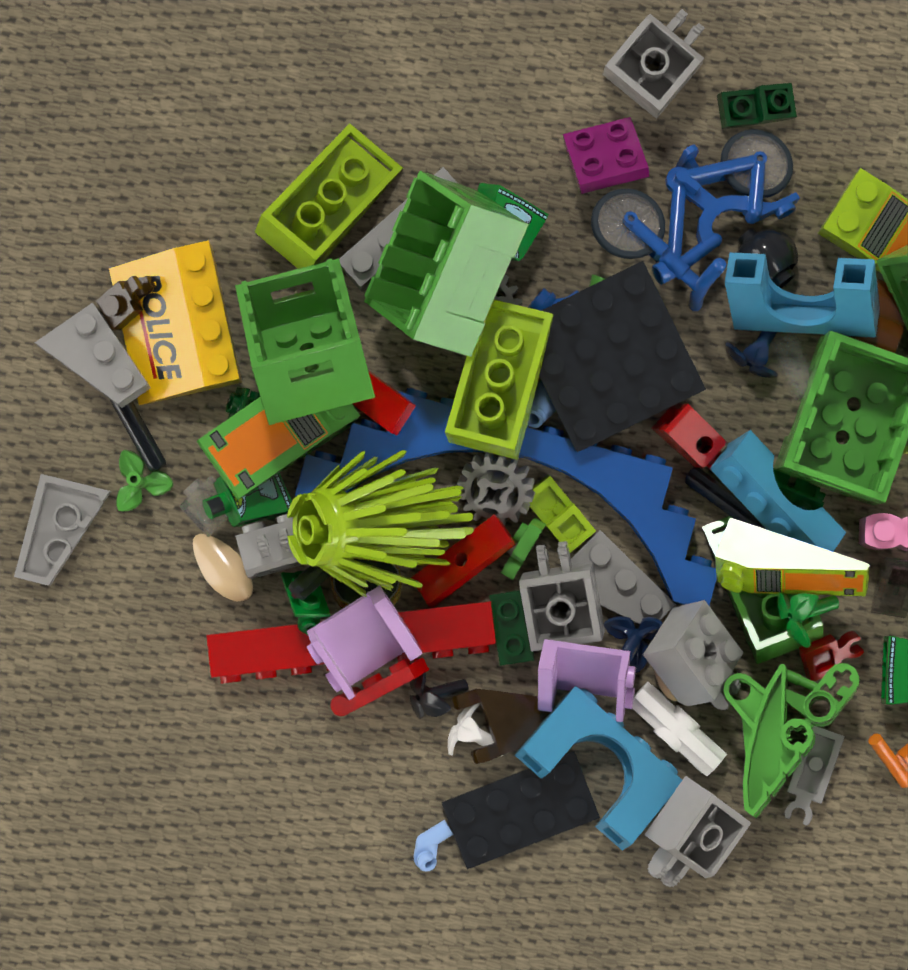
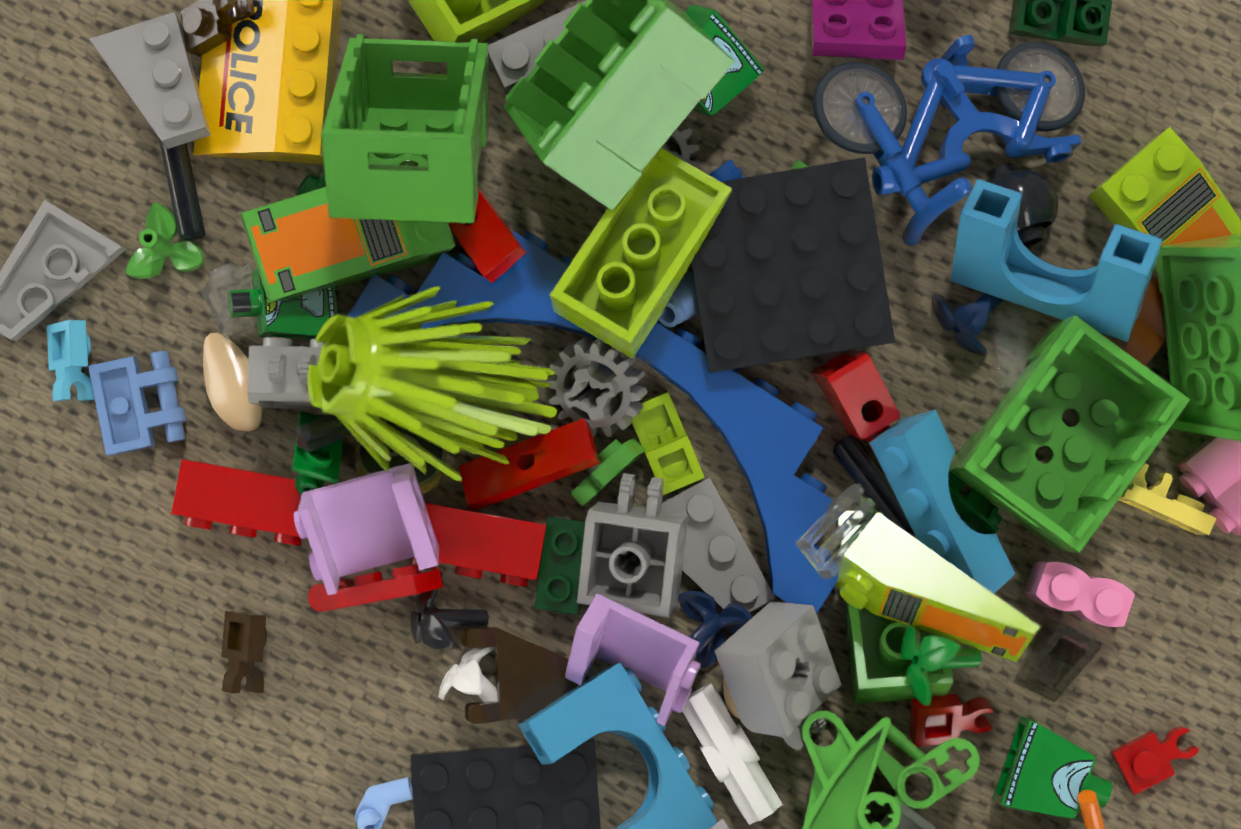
camera: 20 degrees right, 0 degrees up
(93, 582) = (67, 353): none -> medium azure plate
(146, 608) = (123, 404): none -> medium blue plate
(293, 757) = (243, 644): none -> dark brown plate
(686, 554) = (817, 558): none -> clear tile

